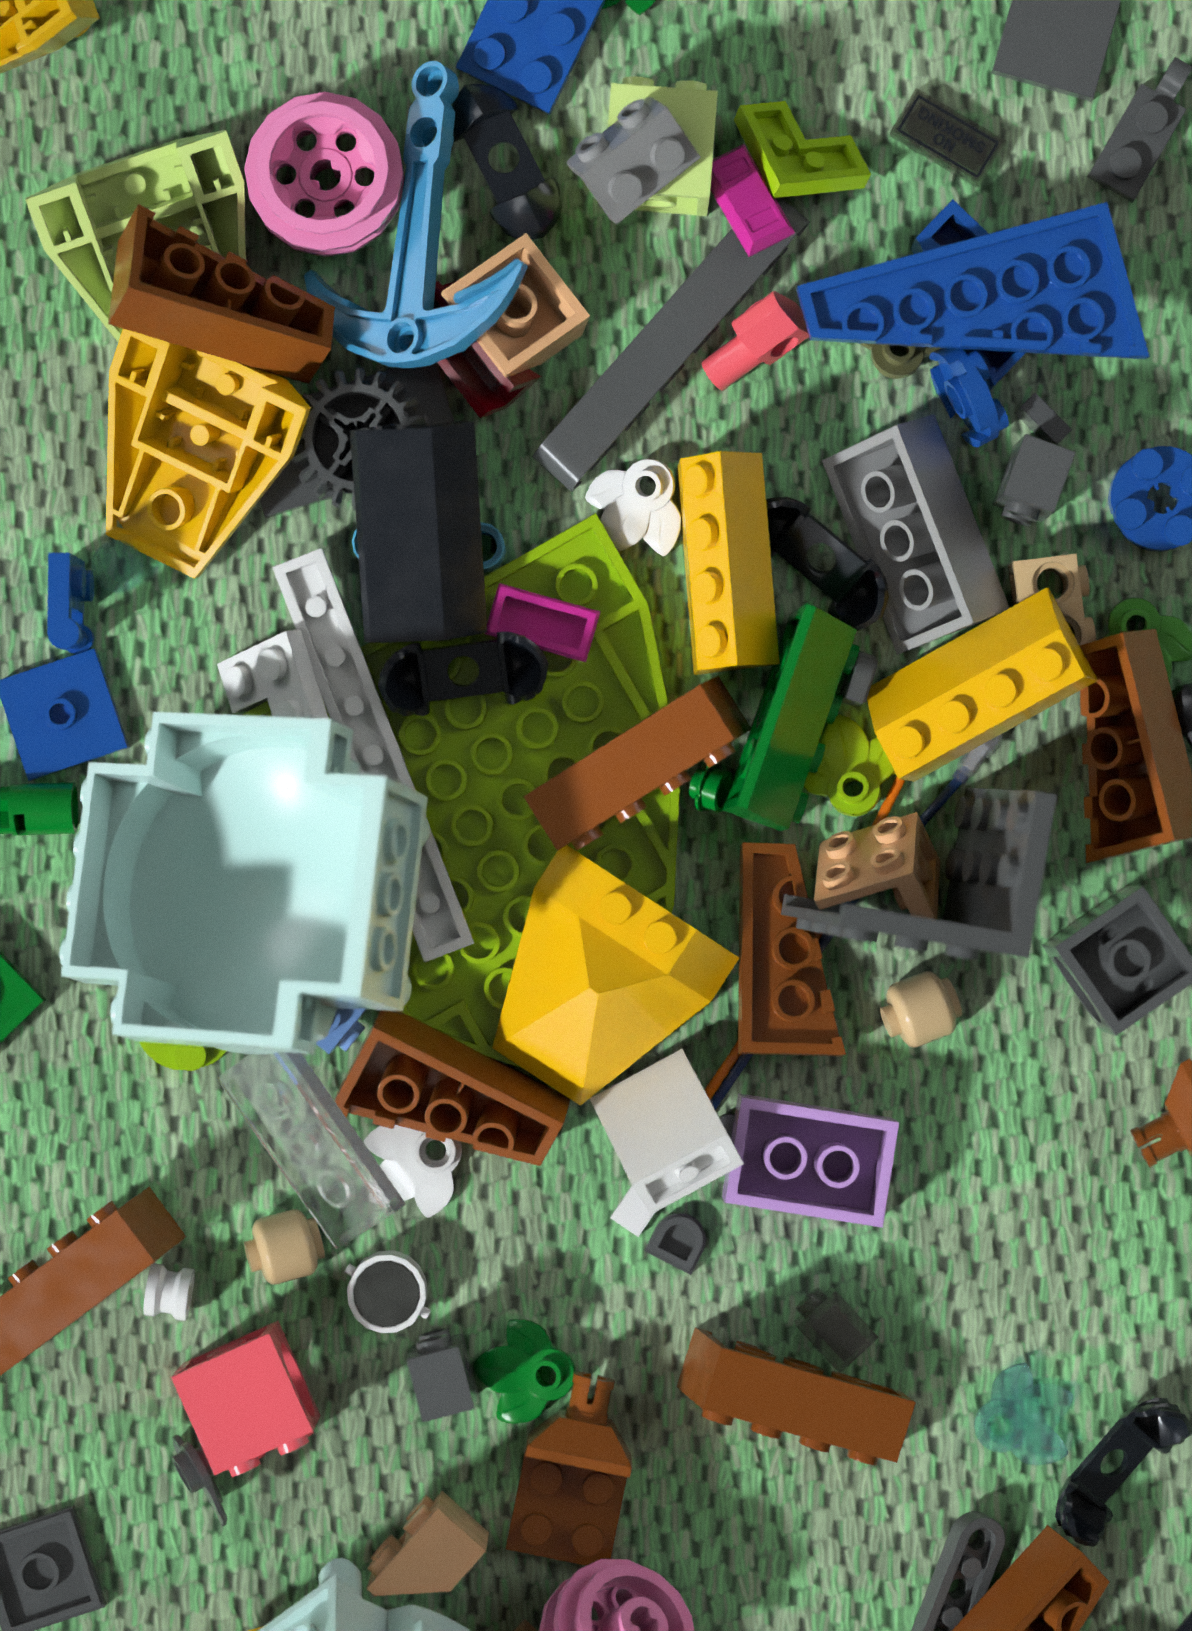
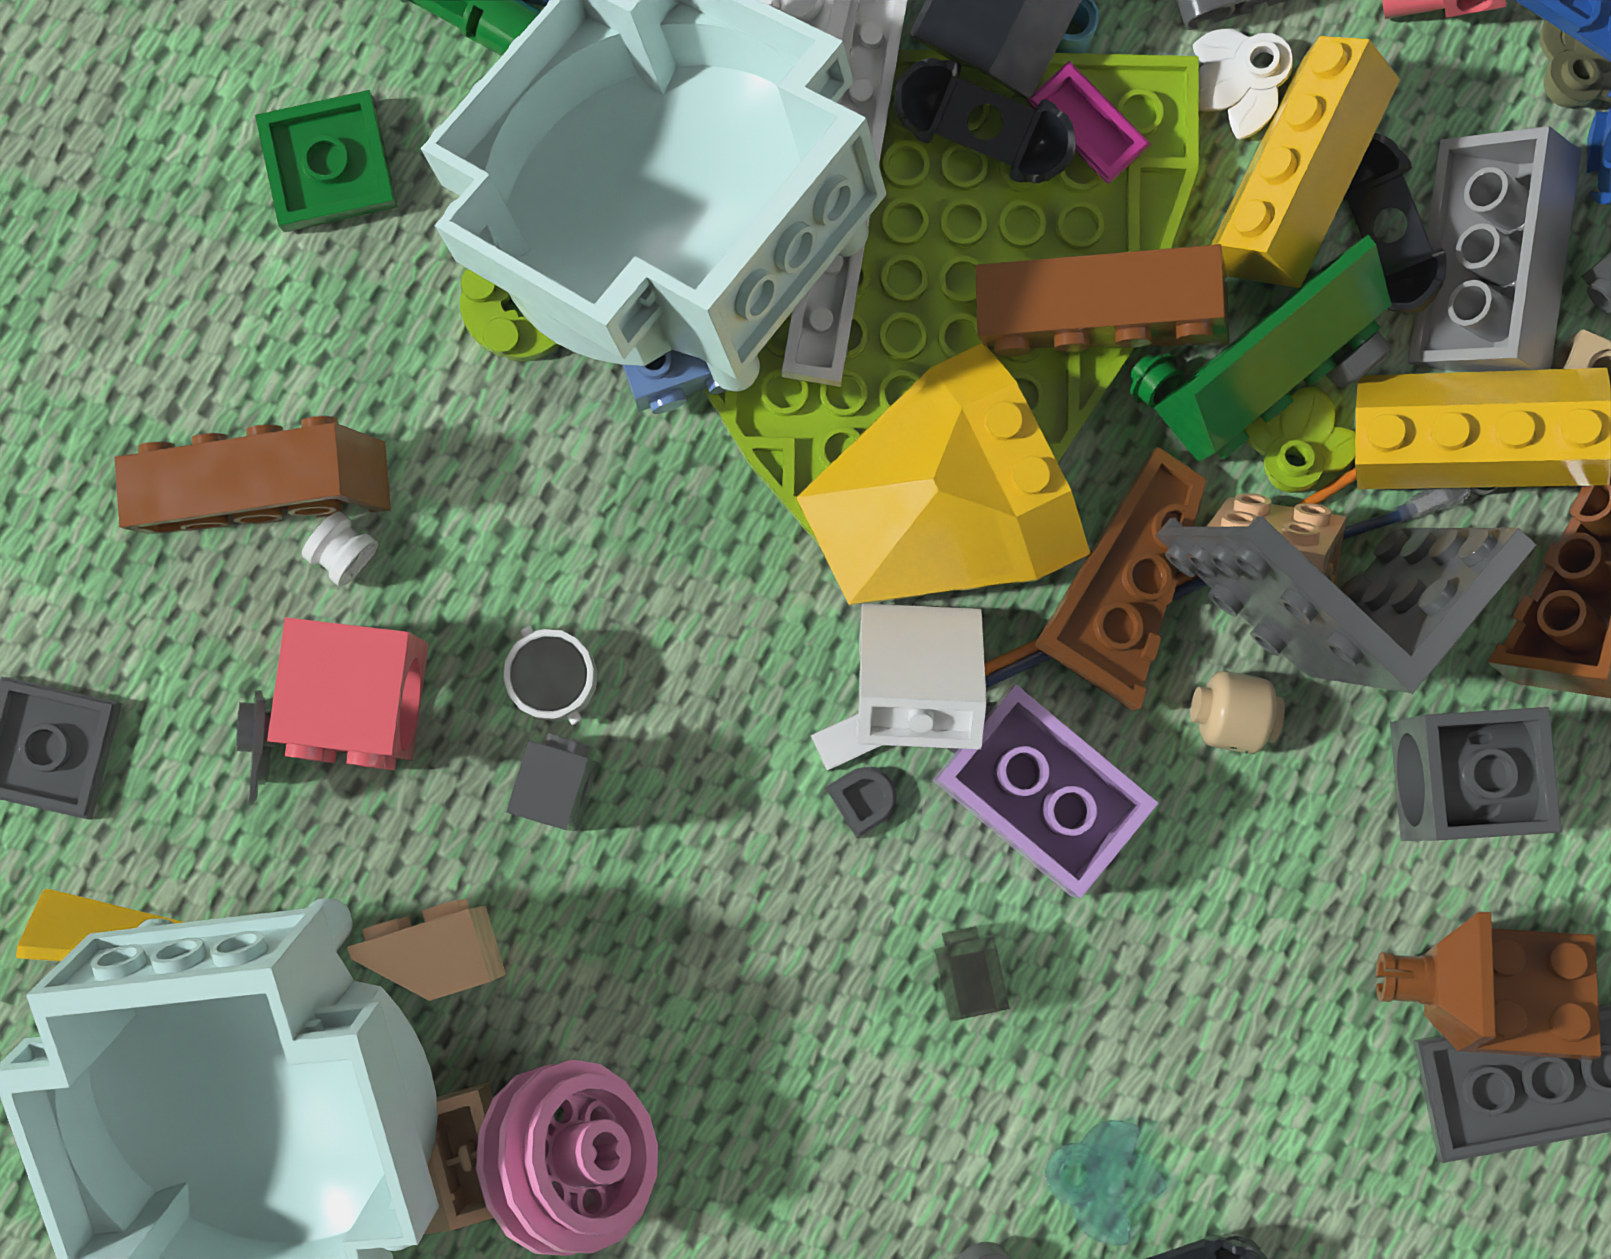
camera: 25 degrees right, 5 degrees down
(284, 1246) = (478, 572): tan head -> none
(312, 1143) = (566, 482): clear tile -> none
(412, 1169) = (643, 570): white plate -> none
(448, 1090) = (730, 513): dark orange wedge -> none
(517, 1370) = (630, 830): green plate -> none
(572, 1480) = (618, 971): dark orange plate -> none
(794, 1399) = (891, 1021): dark orange wedge -> none

